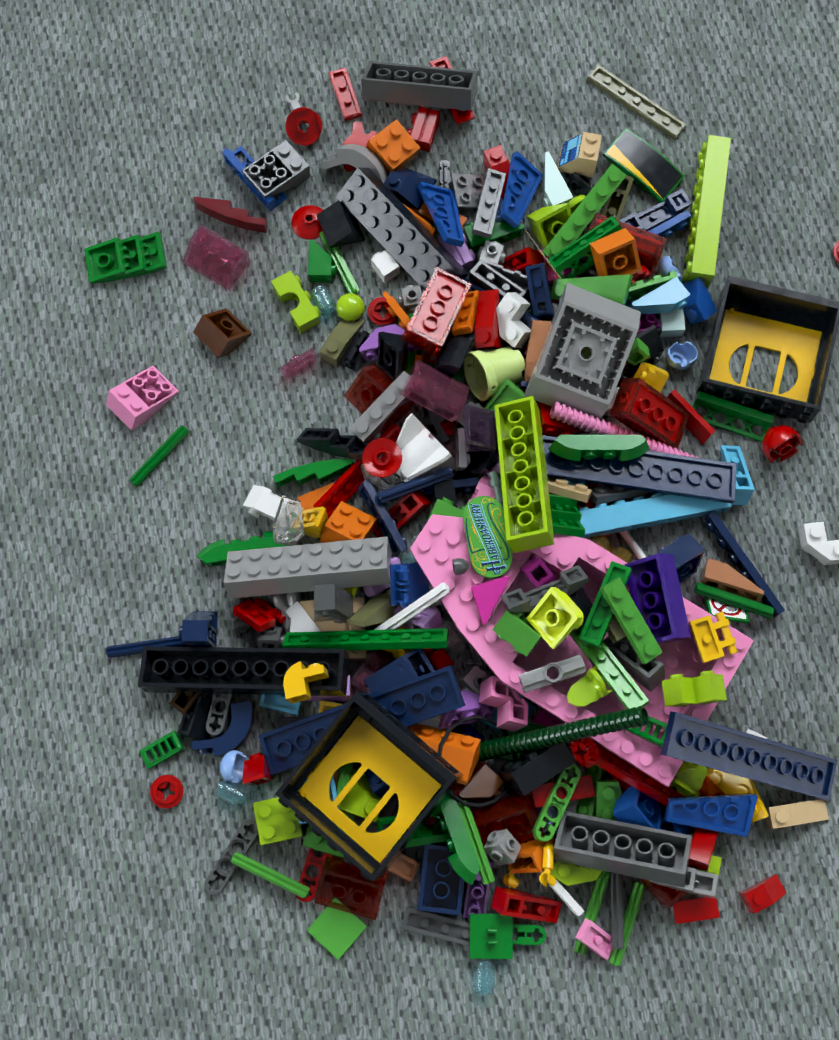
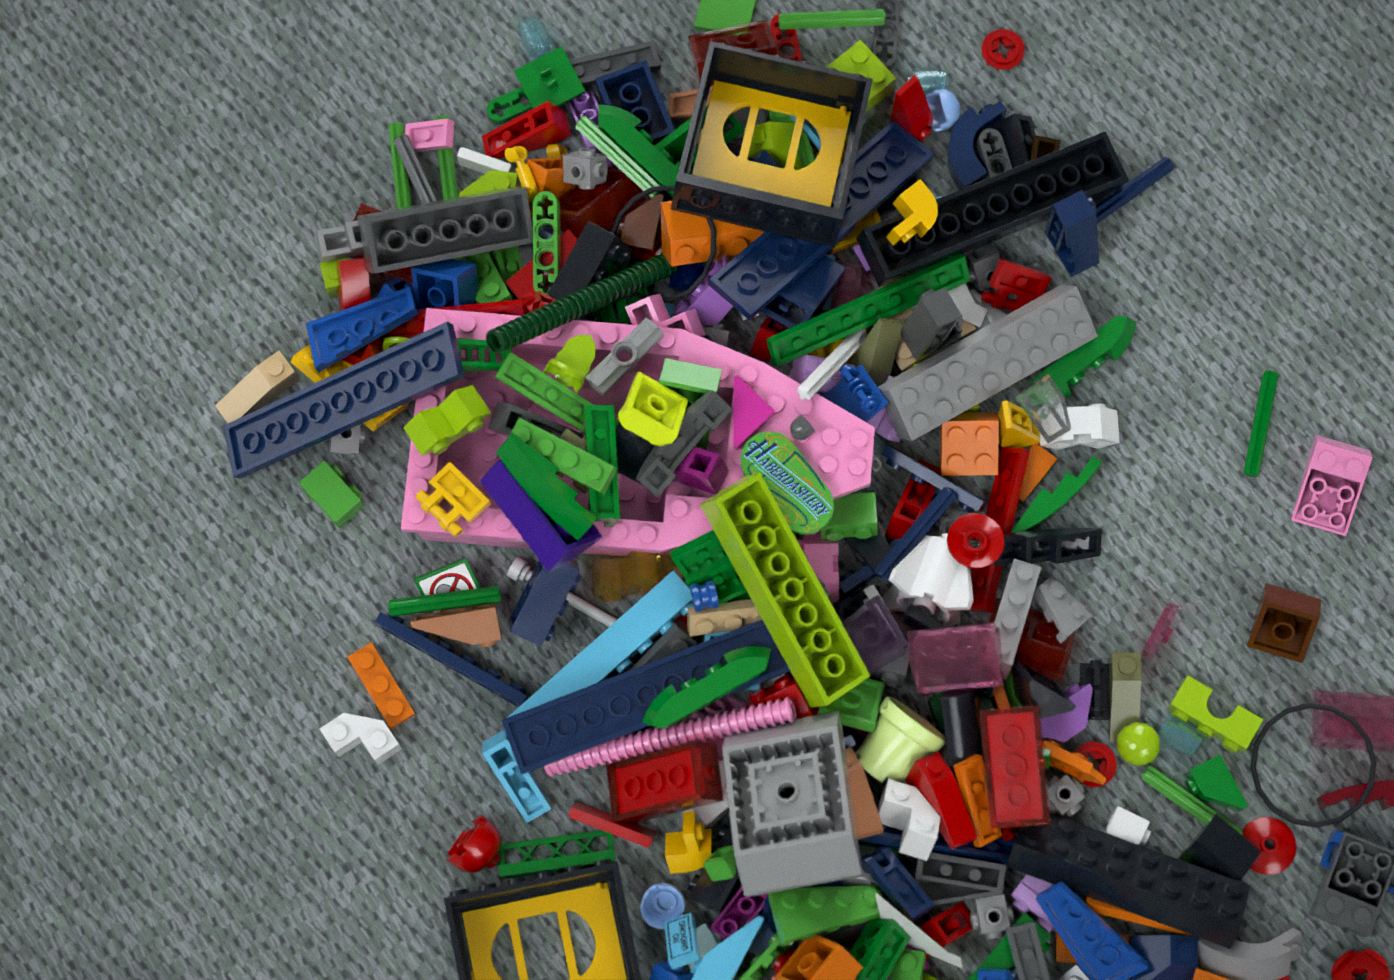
camera: 155 degrees right, 0 degrees up
(177, 742) = (1027, 107): green slope -> none
(266, 211) = (1302, 822): none -> black piece
(349, 403) = (1061, 608): none -> light grey wing
(574, 500) = (704, 596): none -> blue wheel
(654, 609) = (539, 480): none -> green slope
(683, 323) = (681, 941): none -> medium azure tile
(695, 910) = (333, 217): red slope -> none
(763, 894) = (258, 280): red slope -> none
(775, 713) = (332, 494): none -> bright green brick
(794, 573) = (381, 685): none -> orange plate

